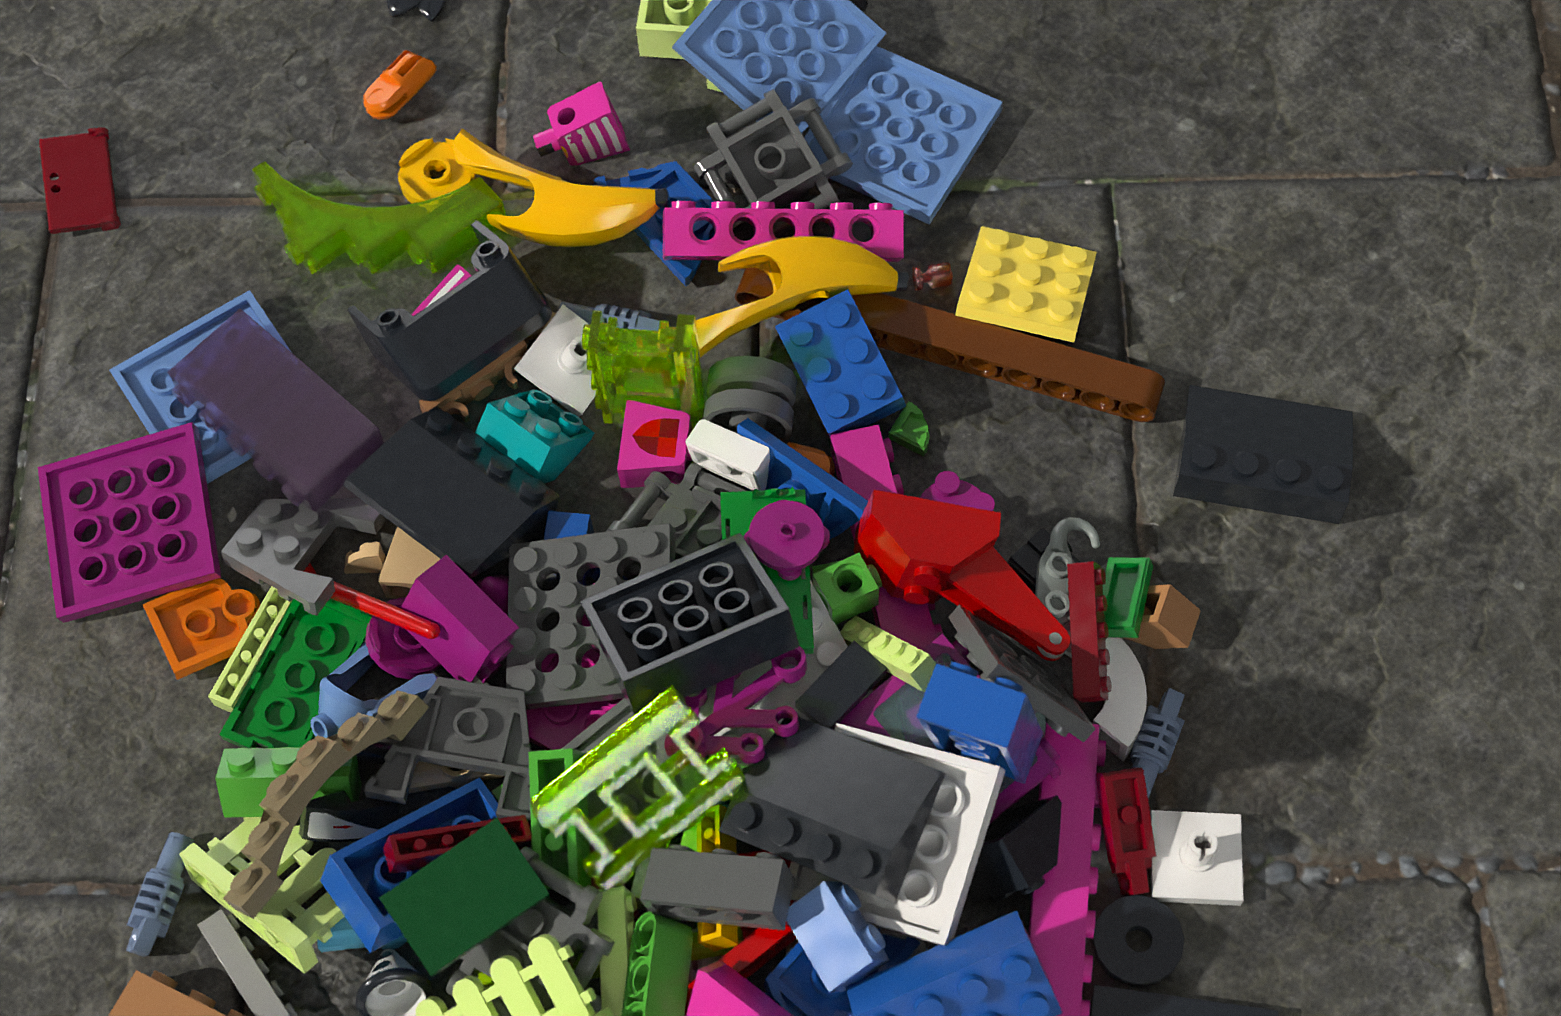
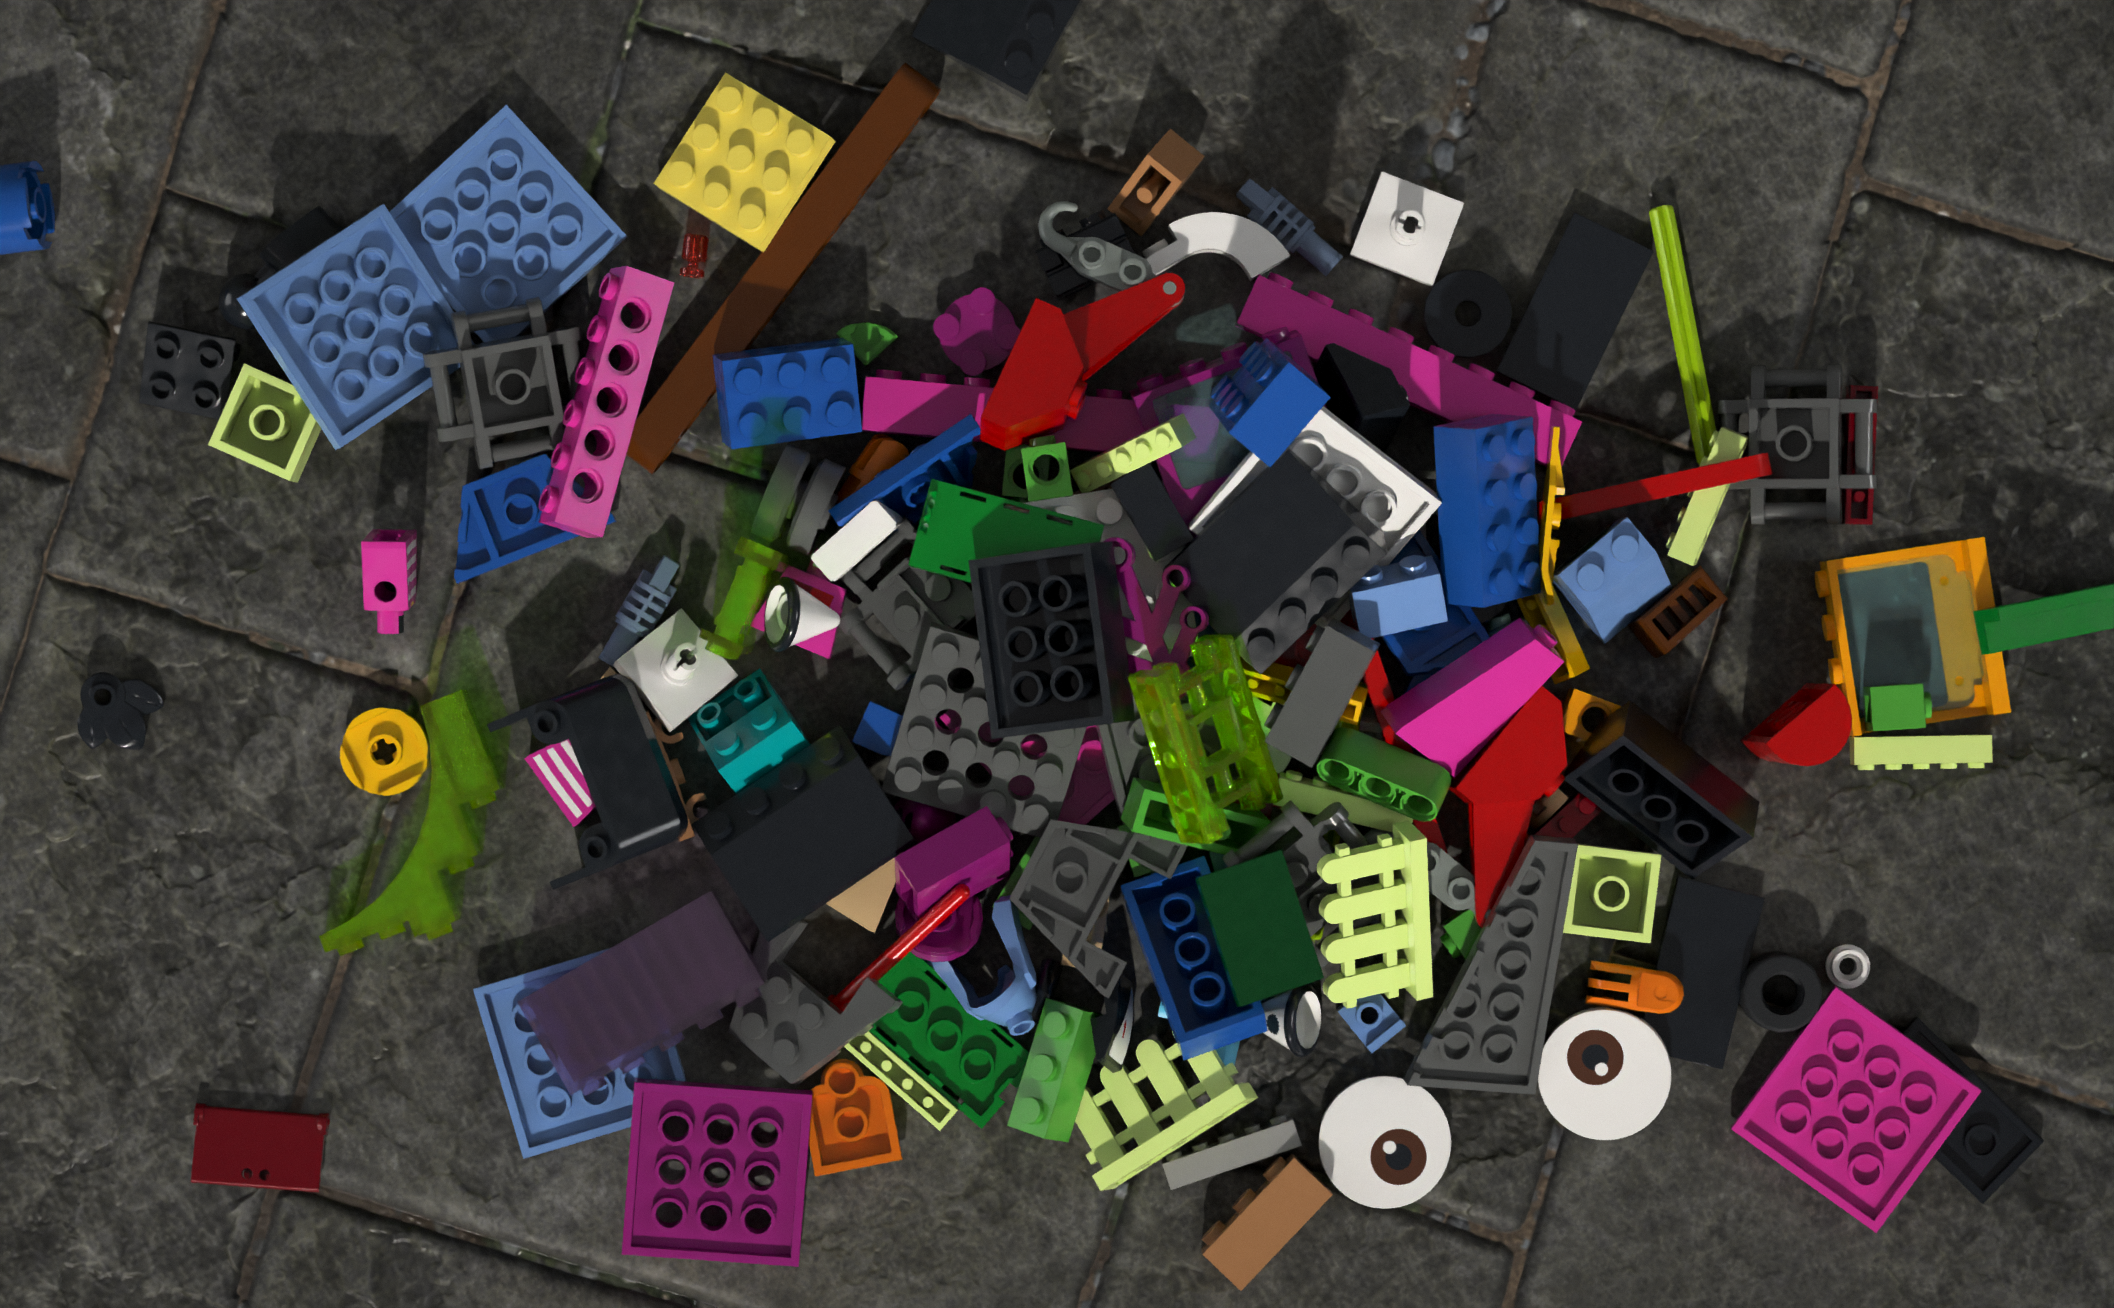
camera: 75 degrees left, 25 degrees up
(158, 896) = (1126, 1221): sand blue hinge -> none
(293, 791) = (1089, 1053): dark tan piece -> none
(367, 560) = (832, 941): tan tile -> none
(398, 85) = (252, 765): orange arm -> none
(419, 848) = (1196, 926): dark red piece -> none
(561, 211) = (496, 624): yellow piece -> none
(646, 426) = (794, 615): none -> white hat
(787, 537) = (984, 515): magenta piece -> none
(799, 271) = (678, 401): yellow piece -> none
(1006, 659) = (1198, 337): dark grey plate -> none
(1088, 631) = (1170, 252): dark red piece -> none
(1126, 595) = (1138, 202): green tile -> none
(1127, 827) = (1363, 285): dark red hinge -> none

